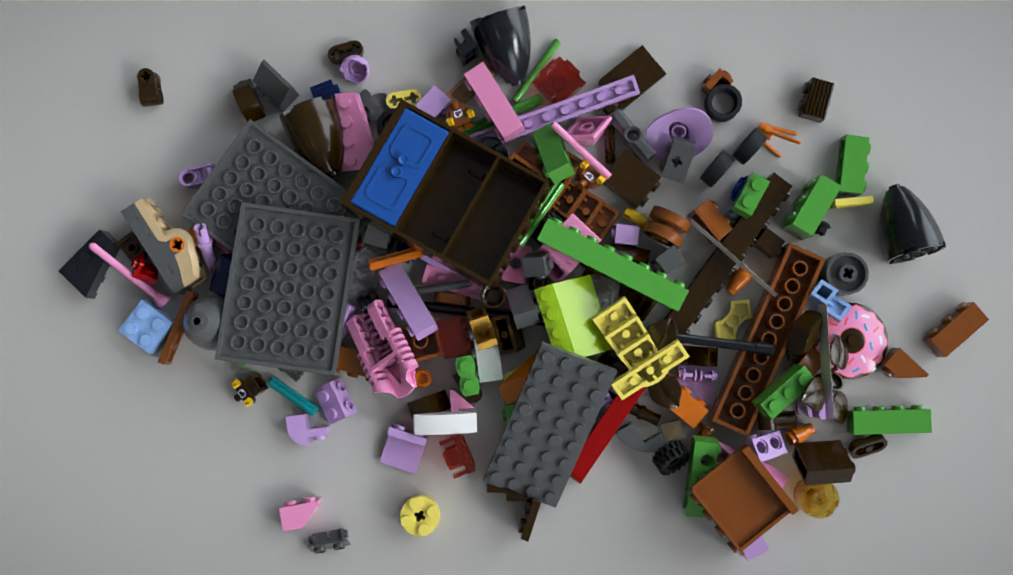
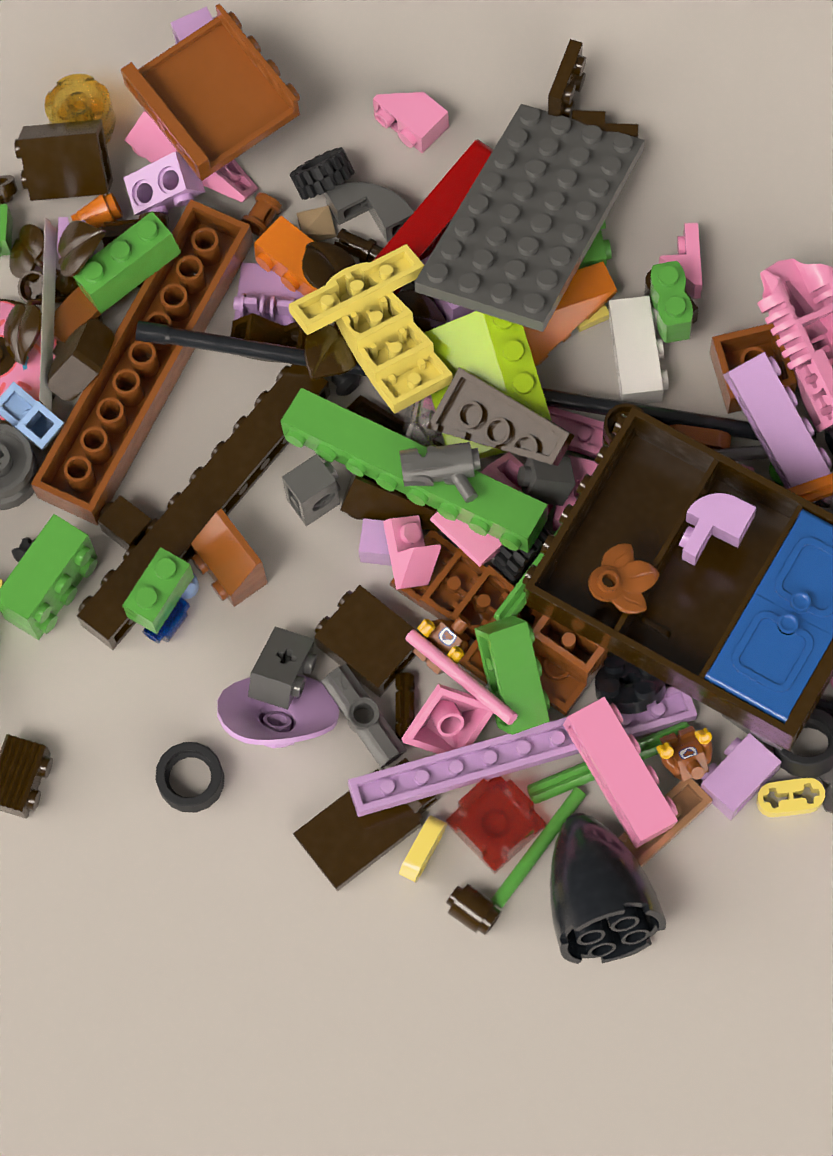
camera: 170 degrees left, 15 degrees down
(403, 448) = (781, 200): lavender bracket -> none
(423, 378) = (748, 314): orange plate -> none
(426, 524) = (767, 91): light yellow brick -> none
(430, 404) = (738, 265): dark brown slope -> none
(443, 217) = (716, 516): none -> lavender brick
(445, 423) = (709, 227): white slope -> none
(453, 337) = (695, 368): clear red brick -> none
(458, 455) = (681, 178): clear red panel -> none
(467, 49) = (669, 879): black hinge -> none
(481, 328) = (644, 373): pearl gold brick -> none
(492, 183) = (628, 578): none -> dark orange plate
(507, 336) = (598, 369): dark brown slope -> none
(522, 306) = (574, 406): dark grey brick -> none
(570, 35) = (473, 909): none -> dark brown brick
(571, 294) = (494, 419): none -> wing
(595, 258) = (442, 463): none -> dark grey piece
(597, 66) = (423, 848): none -> light yellow beam
(612, 225) = (409, 556): none -> bright pink slope
(618, 499) = (413, 116): none -> bright pink slope
(635, 217) = (363, 576): yellow pin -> none
(666, 227) = (310, 546): dark orange wheel -> none
(699, 447) = (270, 164): bright green brick -> none
(710, 81) = (207, 816): dark orange bracket -> none
(717, 168) = (211, 649): black tyre -> none
(733, 257) = (194, 484): white sticker -> none
(737, 313) = (187, 412): light yellow tile -> none
(738, 280) = (180, 465): orange cone -> none
(749, 146) = (148, 687): black tyre -> none
(770, 130) = (115, 719): orange plant -> none

